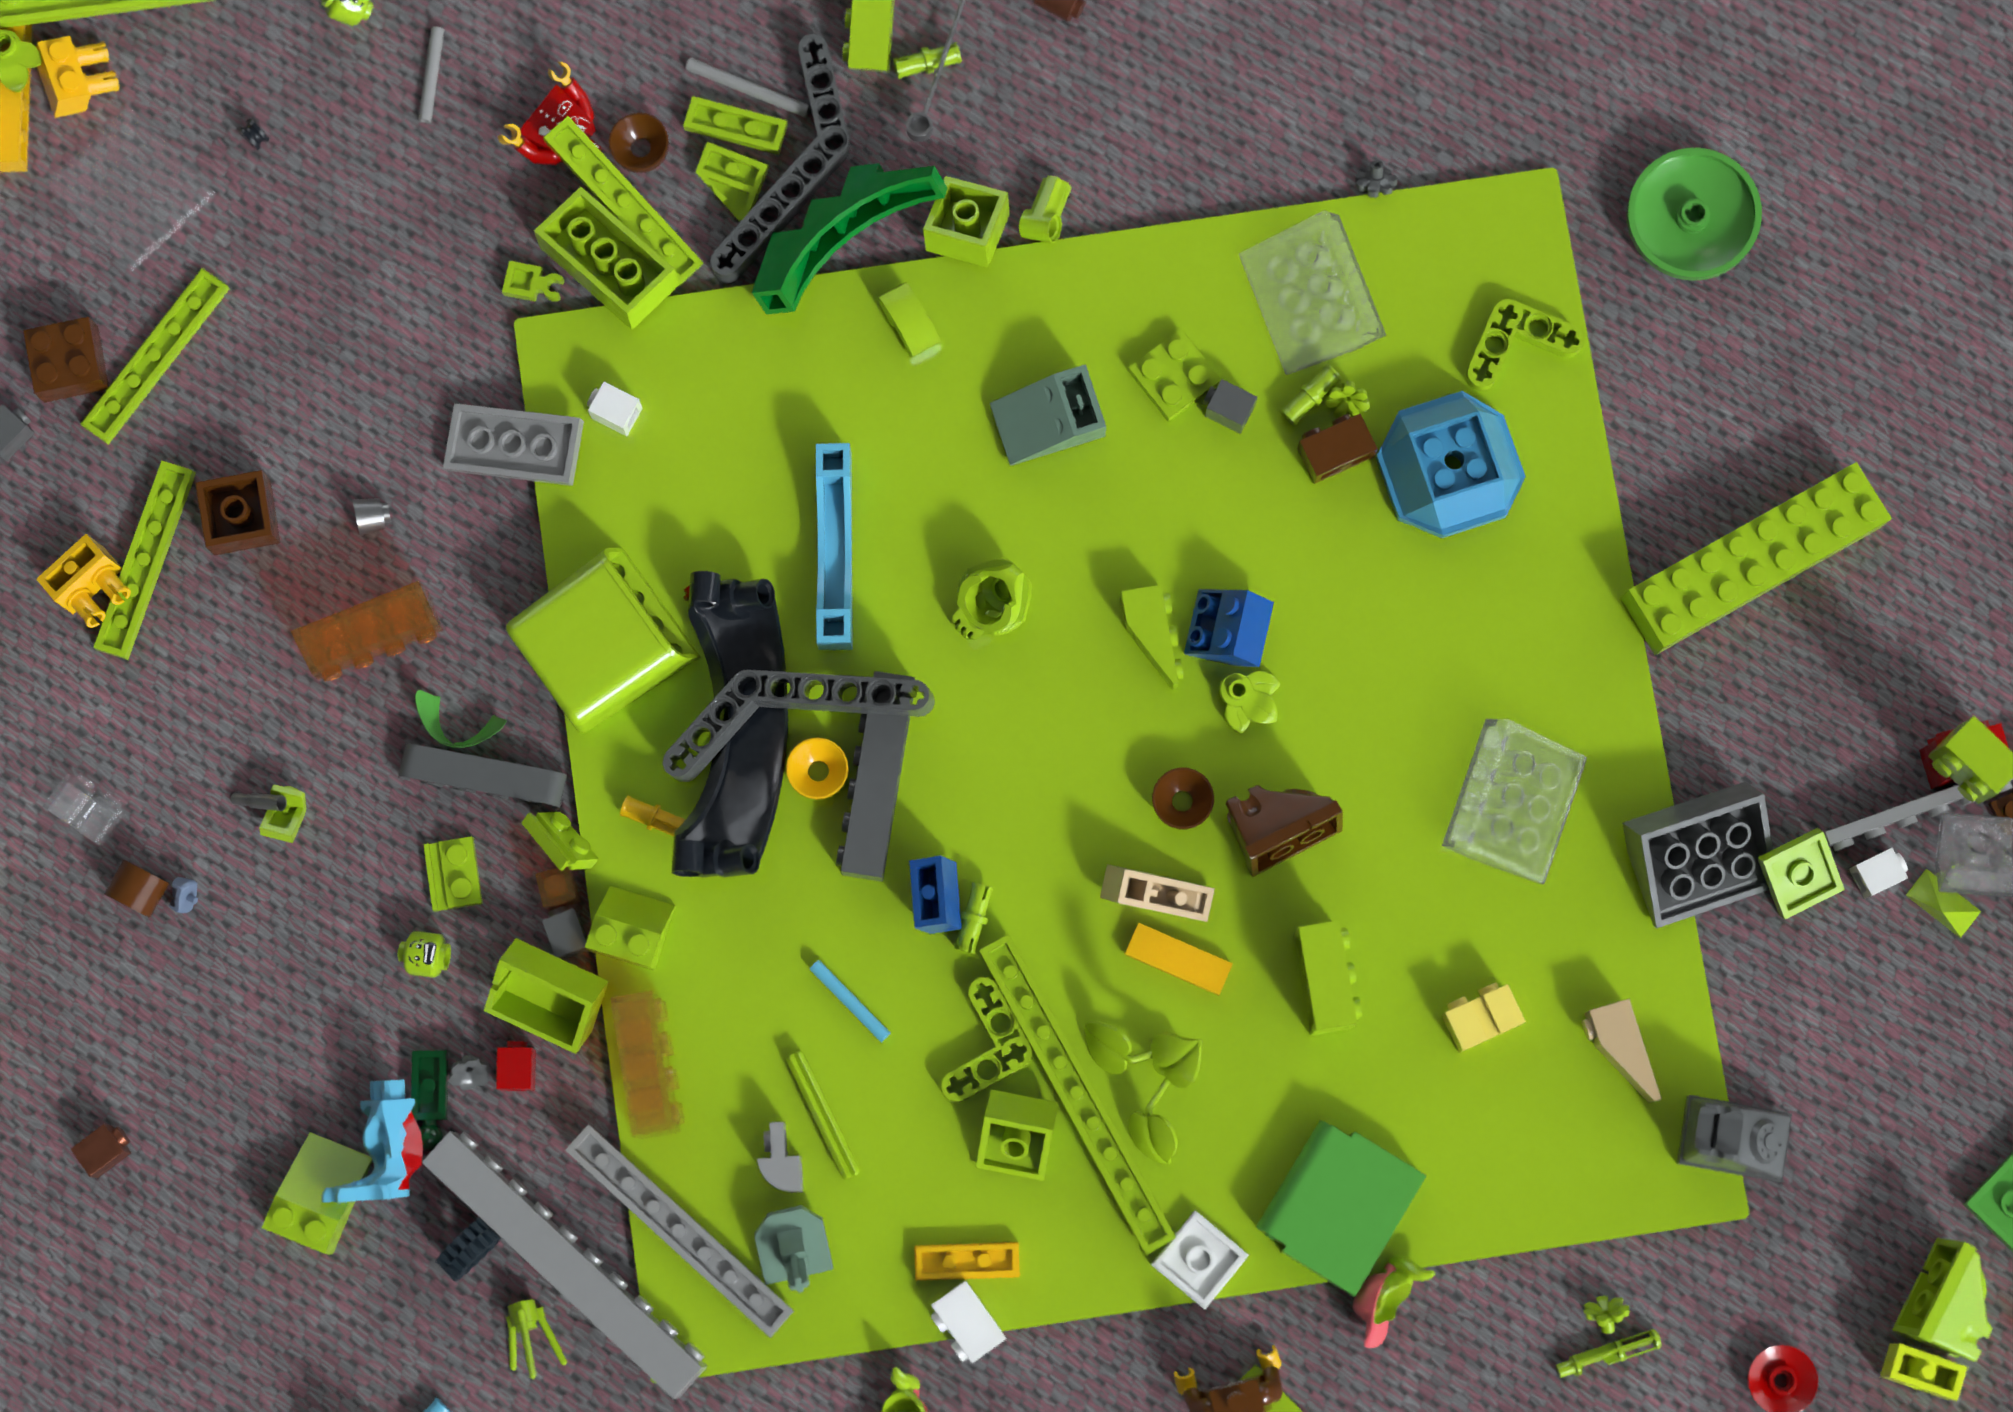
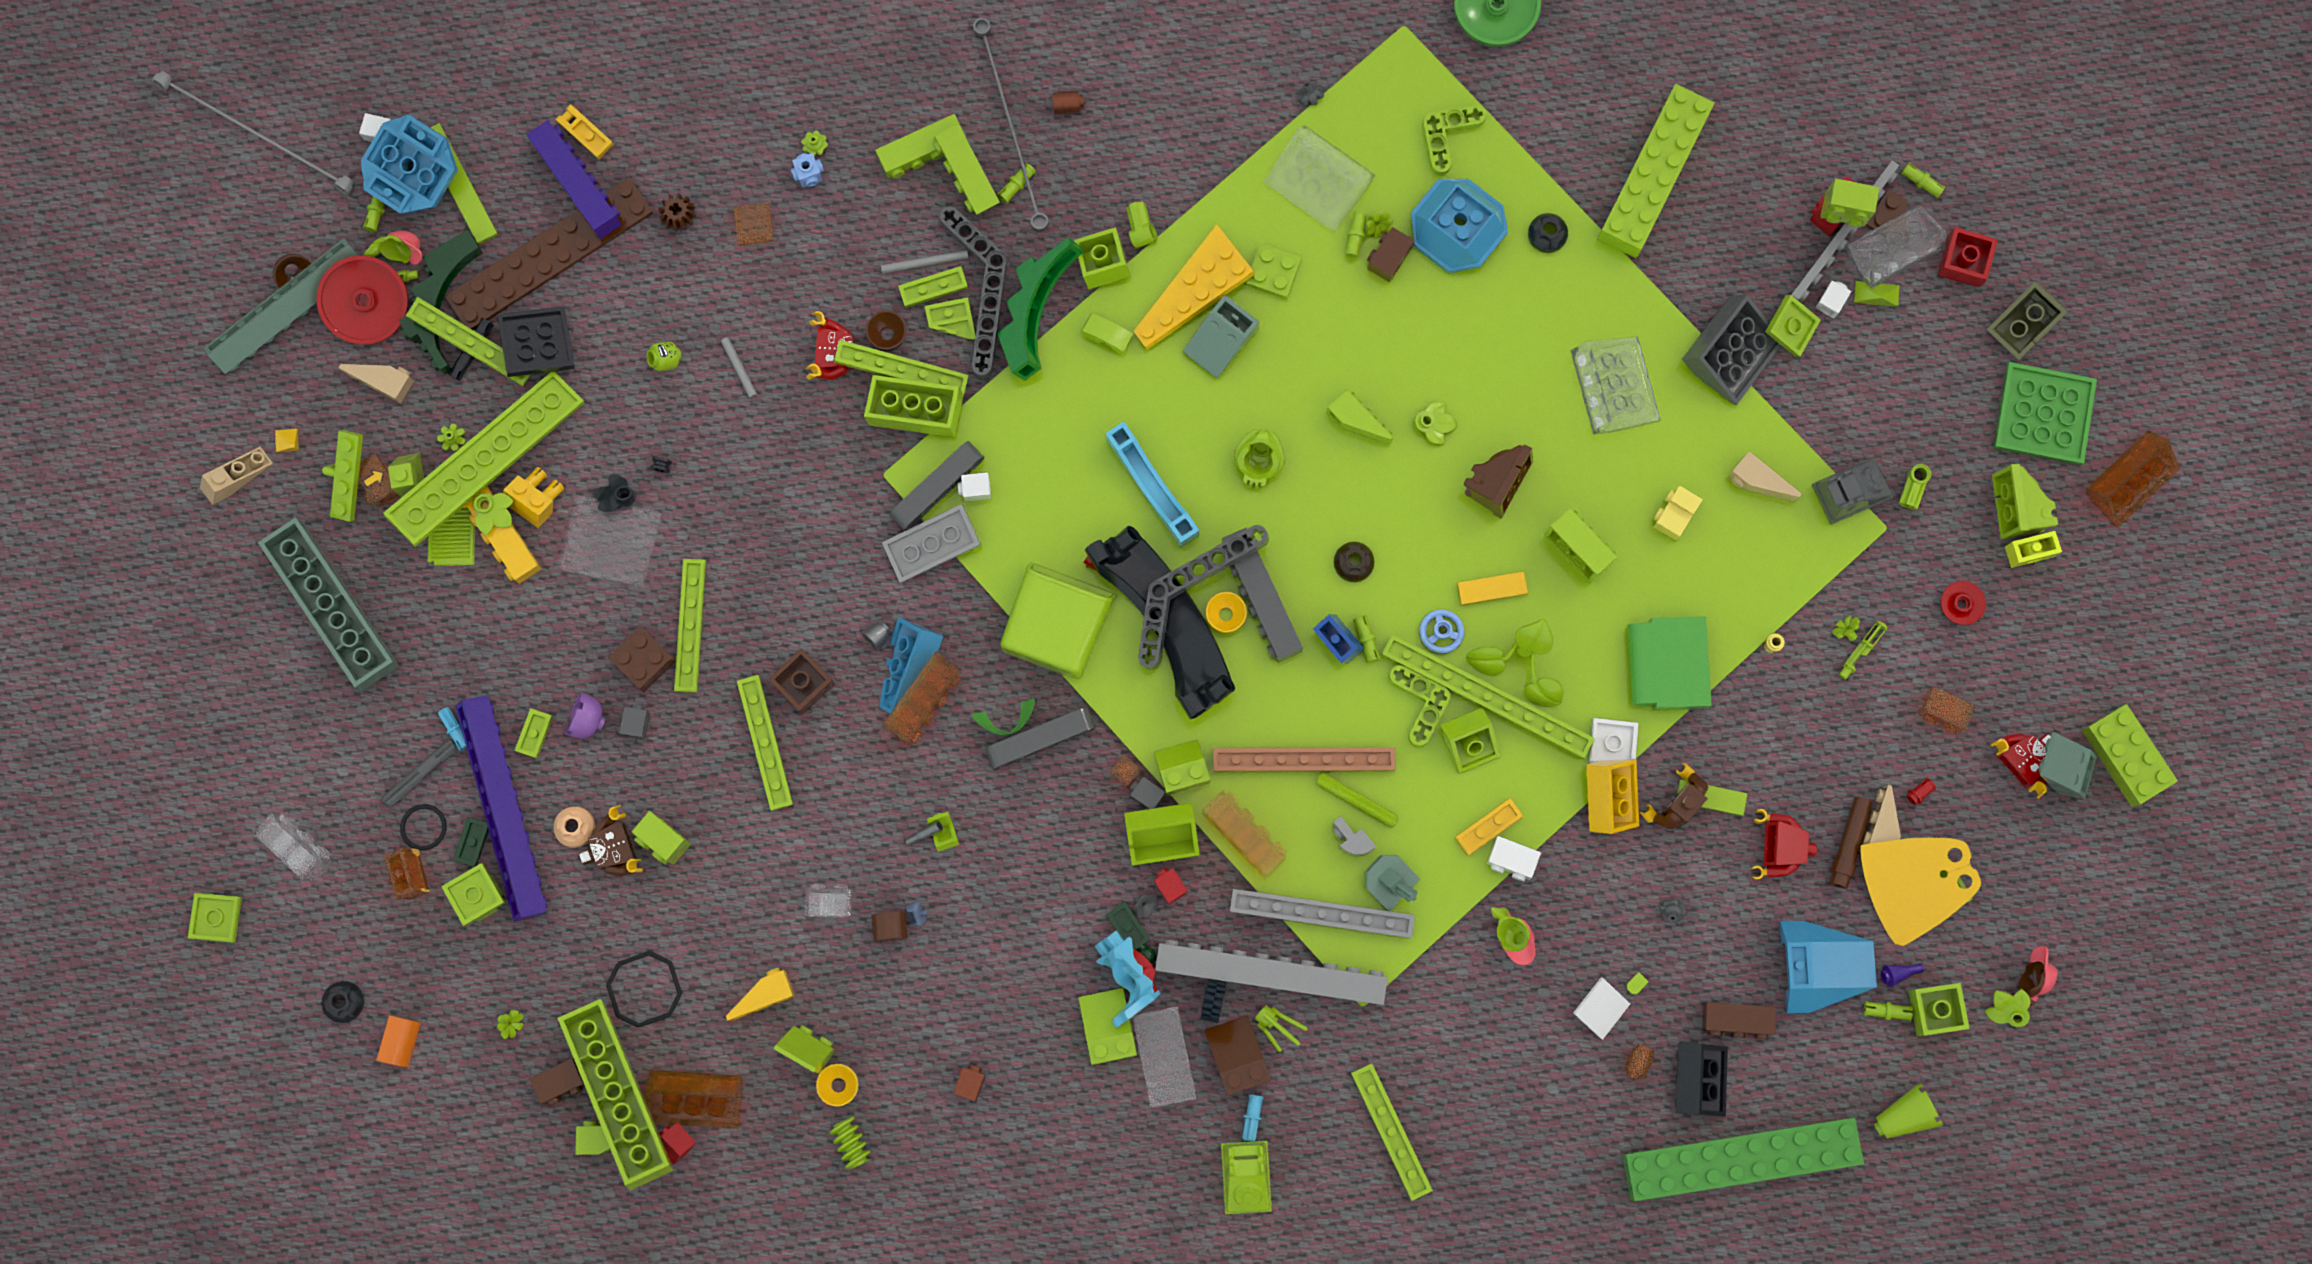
camera: 35 degrees left, 0 degrees up
(82, 574) = (736, 772): yellow brick -> none
(168, 135) = (612, 496): none -> black plate
(359, 1280) = (1164, 1057): none -> clear brick
(405, 558) = (912, 651): none -> dark azure wedge
(424, 954) = (1076, 856): lime head -> none
(453, 874) = (1060, 803): lime plate -> none
(453, 1339) = (1237, 1055): none -> reddish brown slope
(526, 281) = (874, 449): lime plate -> none
(560, 840) = (1109, 744): lime plate -> none
(568, 376) = (936, 485): none -> dark grey beam
(651, 816) = (1153, 698): yellow axle -> none
(790, 1020) = (1303, 759): none -> nougat plate
(850, 1001) = (1329, 728): medium azure bar -> none
(1021, 827) = (1346, 570): none -> dark brown piece
(1079, 329) = (1204, 279): none -> yellow wing
(1087, 947) = (1437, 614): none -> light blue piece
(1151, 1327) = (1612, 795): none -> yellow slope
(1156, 893) = (1456, 560): tan slope -> none
(1186, 781) = (1438, 488): reddish brown piece -> none
(1229, 405) = (1316, 268): dark grey brick -> none
(1229, 627) = (1398, 389): blue slope -> none
(1383, 1294) = (1724, 694): hair -> none
(1505, 1269) = (1777, 639): none -> light yellow pin
(1552, 563) = (1544, 242): none -> black piece
(1818, 1188) = (1913, 488): none -> lime piece

